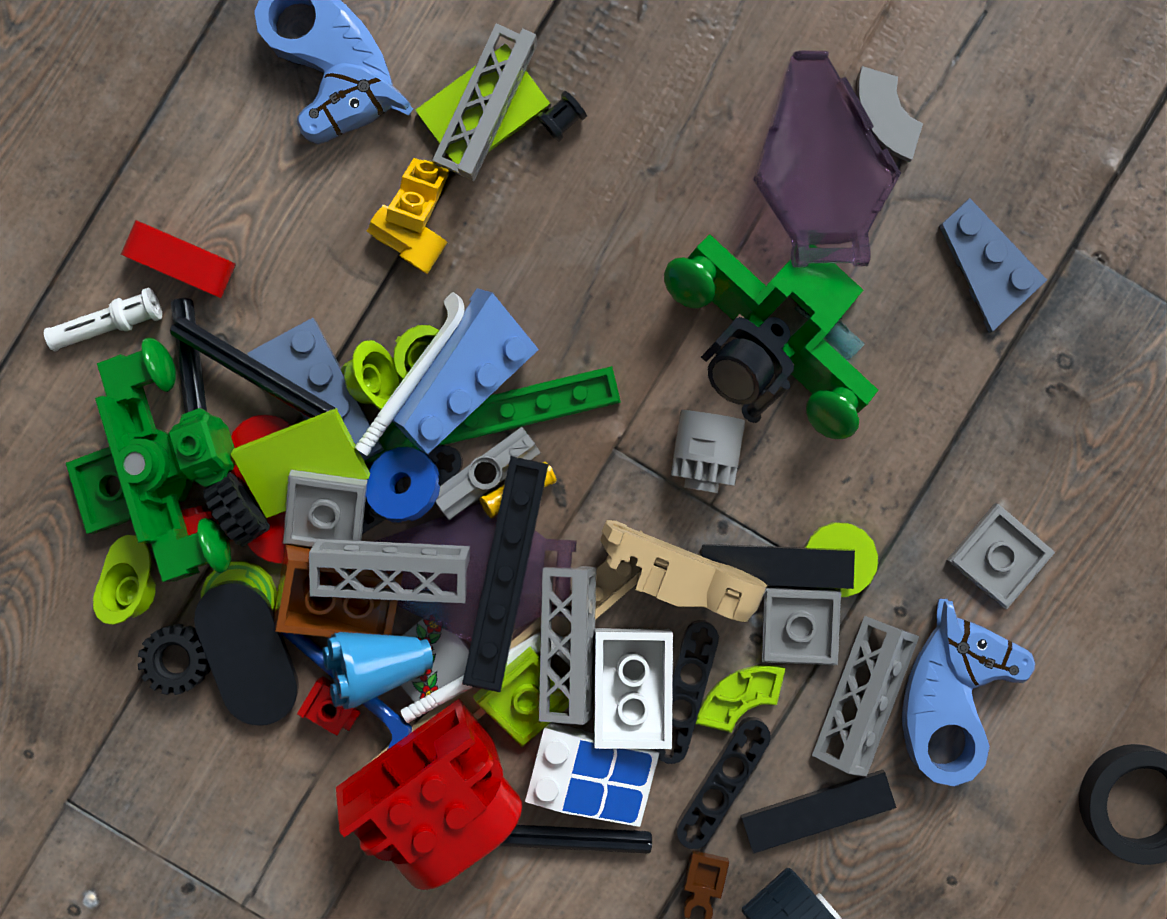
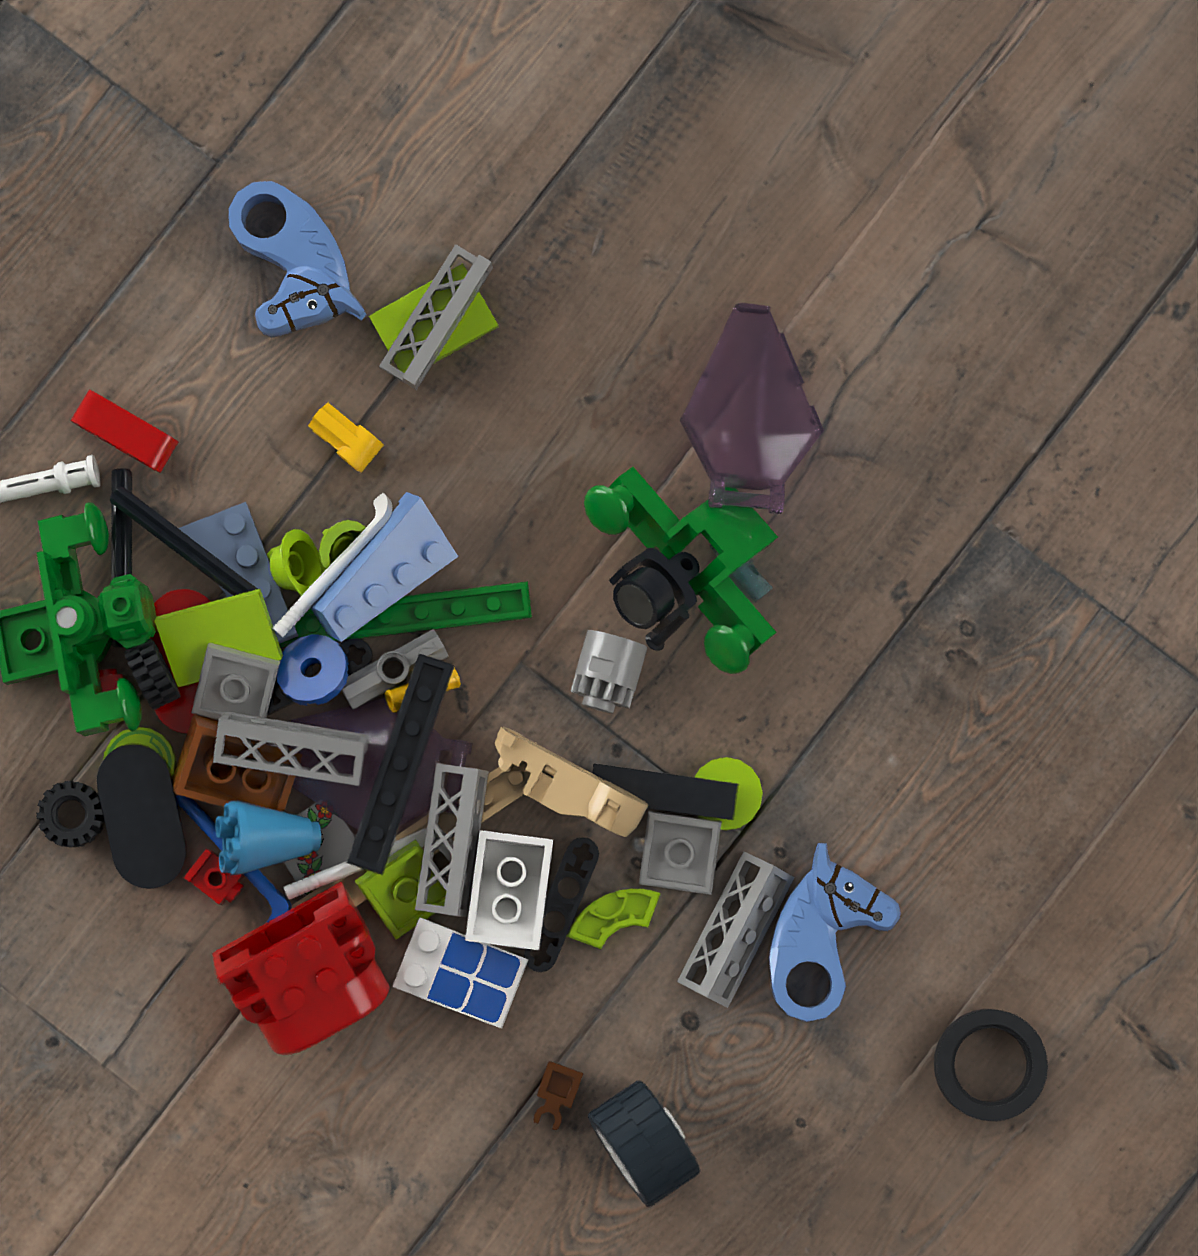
camera: 15 degrees right, 5 degrees down
(125, 582) = (34, 731): lime piece -> none
(417, 195) = (360, 397): yellow slope -> none
(562, 116) = (508, 338): black bush -> none
(579, 839) = (433, 1035): black axle -> none
(719, 780) = (582, 994): black beam -> none
(818, 811) = (676, 1037): black tile -> none
(891, 123) = (819, 375): light grey tile -> none
(992, 265) = (903, 525): sand blue wing -> none
(1000, 556) = (882, 809): light grey tile -> none

